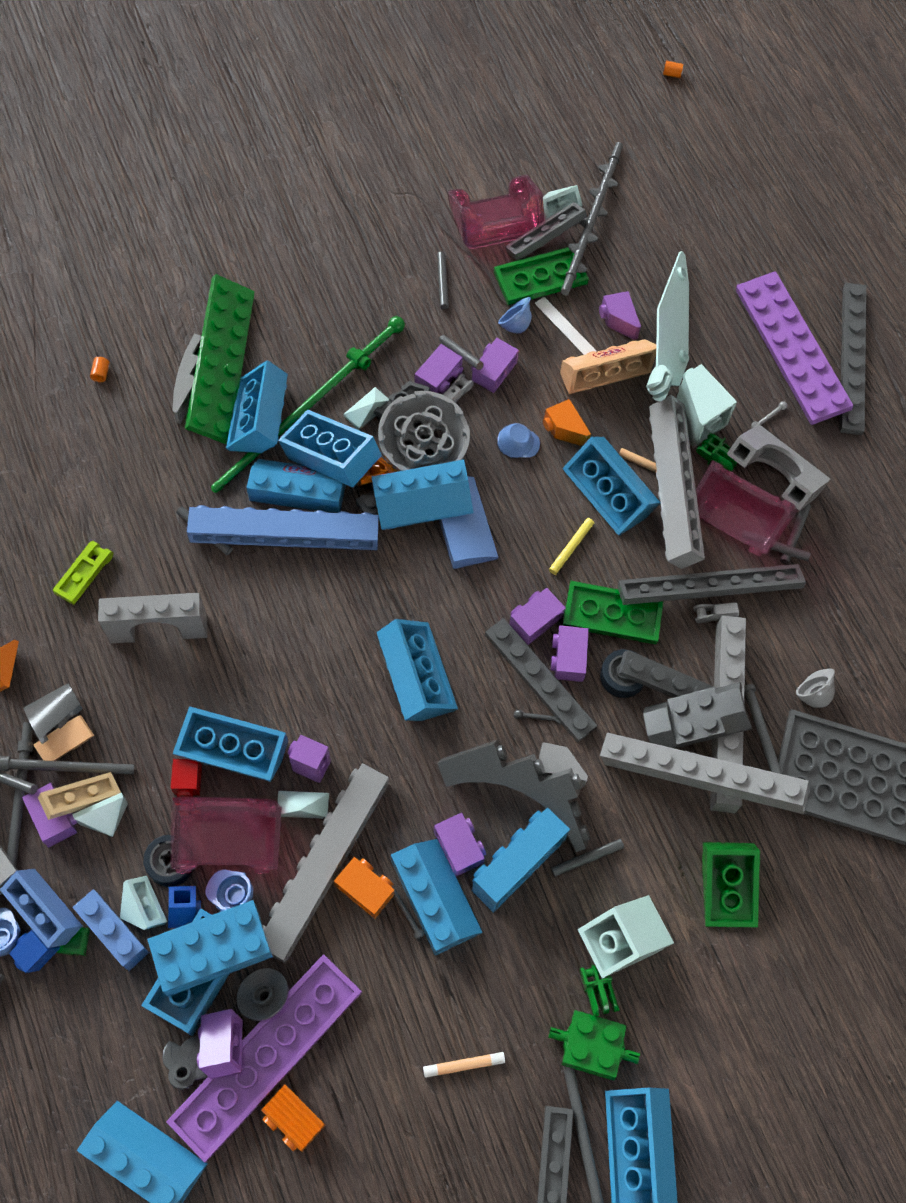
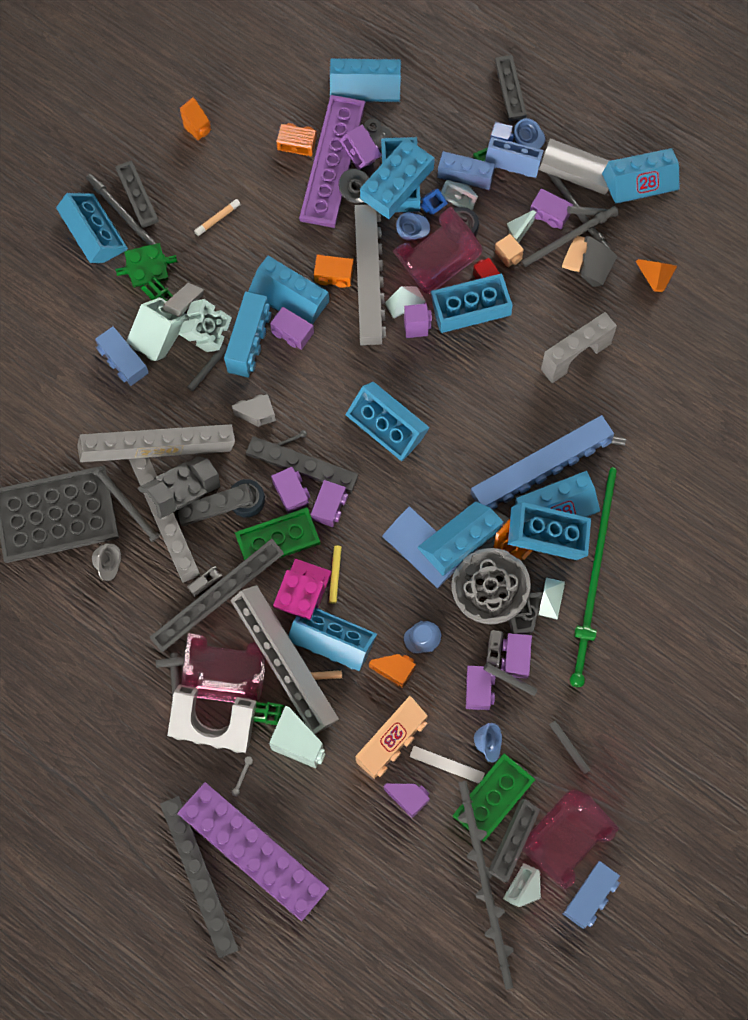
camera: 155 degrees right, 5 degrees up
(78, 795) = (539, 223): tan plate -> none
(82, 572) = (652, 359): lime plate -> none
(138, 790) = (509, 250): none -> light nougat brick
(185, 379) = (693, 533): light grey slope -> none
(220, 359) = (684, 567): green plate -> none
(258, 409) = (625, 539): dark azure slope -> none
(505, 165) = (592, 895): none -> medium blue brick
(555, 791) = (300, 378): dark grey arch -> none
(566, 900) = (205, 325): none -> light aqua brick
(574, 954) = (182, 299): none -> light grey tile
(617, 540) = (302, 589): none -> dark pink bracket
(672, 332) = (356, 798): light aqua wing -> none
(687, 930) = (121, 356): none -> medium blue brick
(730, 884) = (107, 400): green slope -> none

